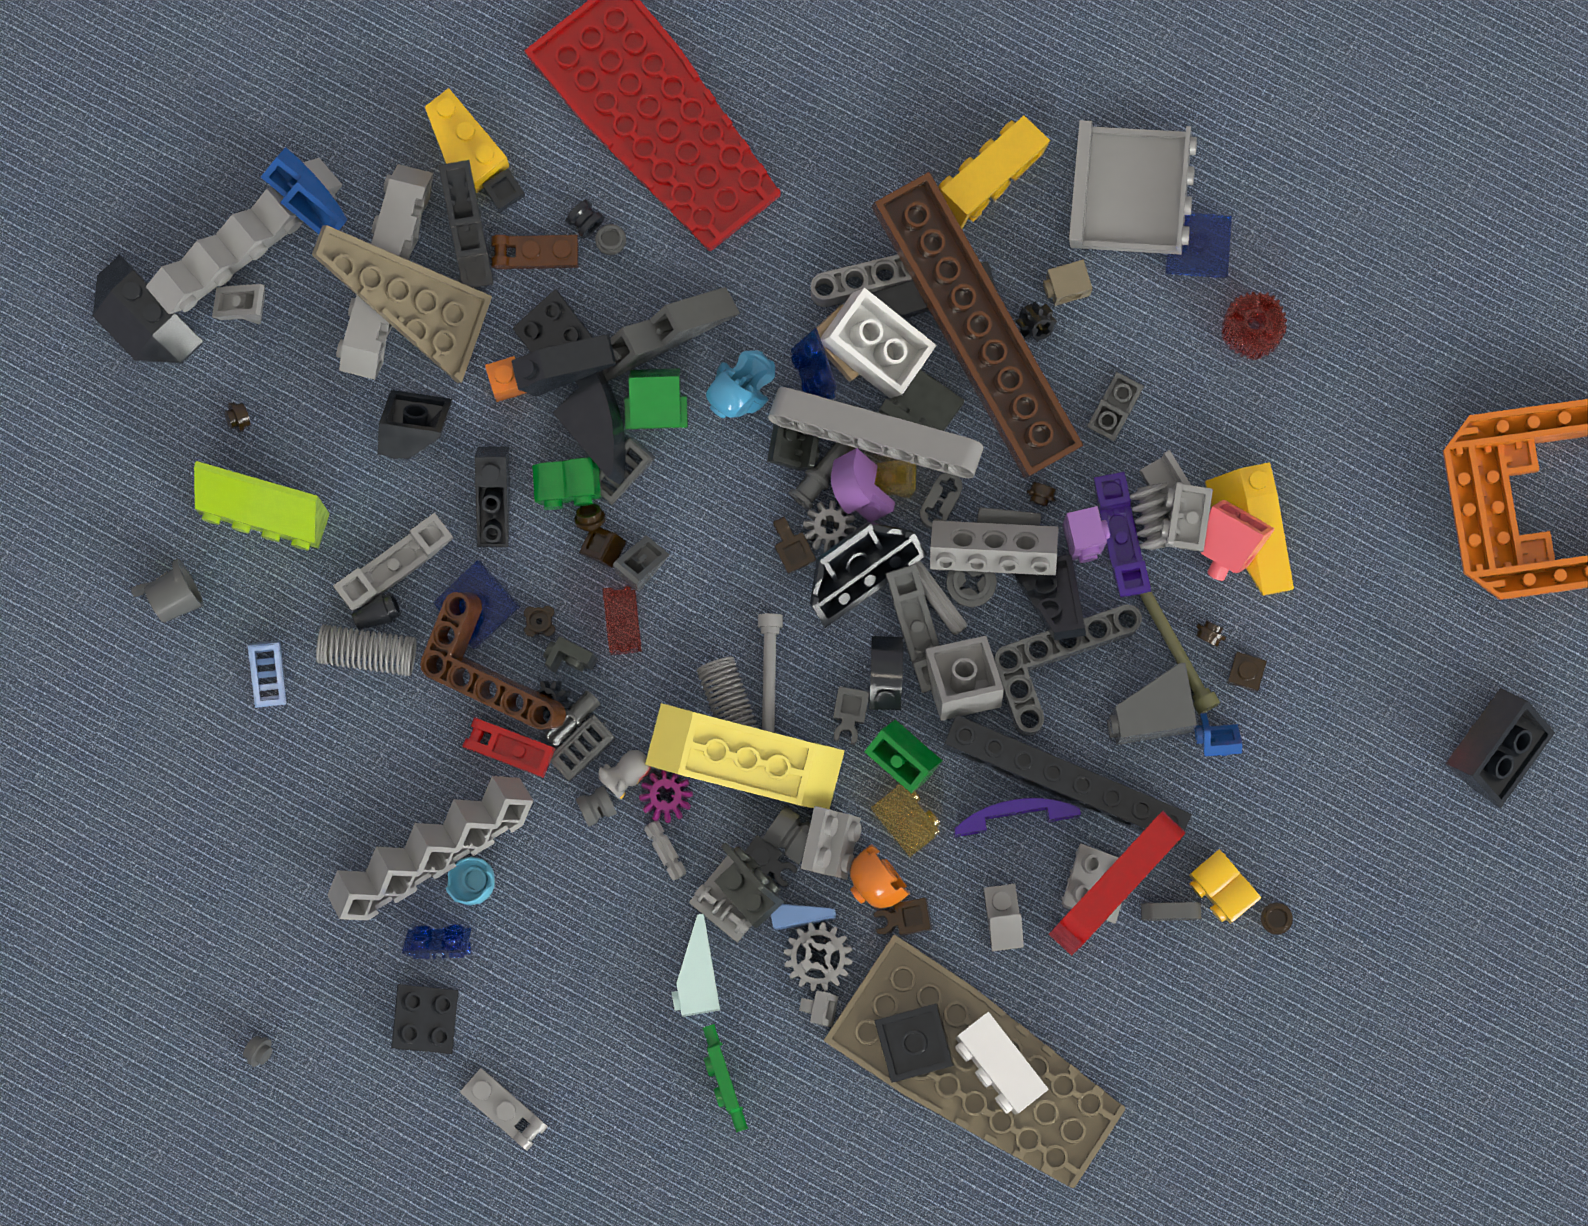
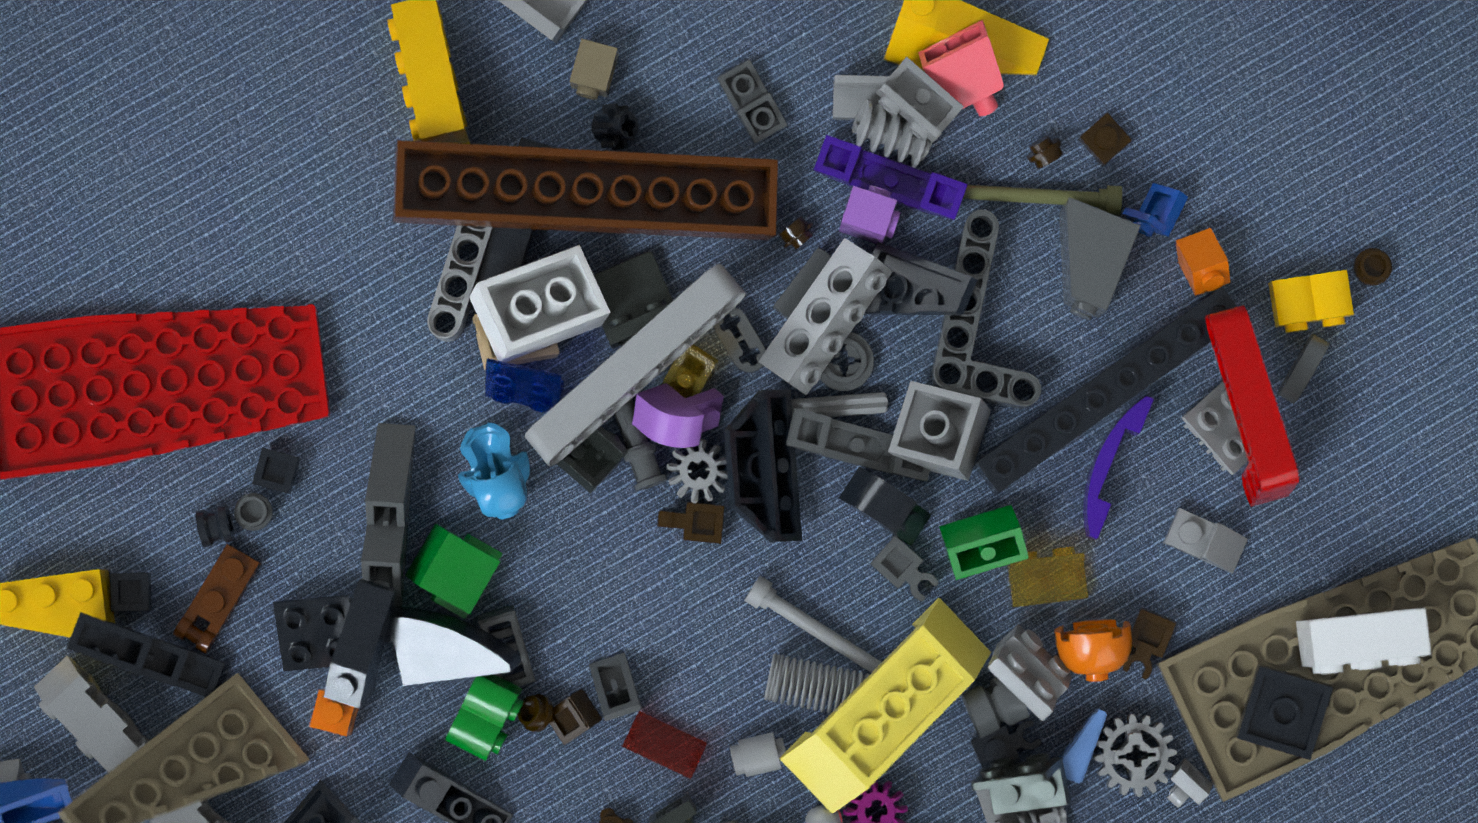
camera: 60 degrees left, 5 degrees up
(649, 237) = (276, 470): none -> black plate
(654, 689) = (757, 754): none -> light grey brick
(1202, 791) = (1203, 261): none -> orange brick

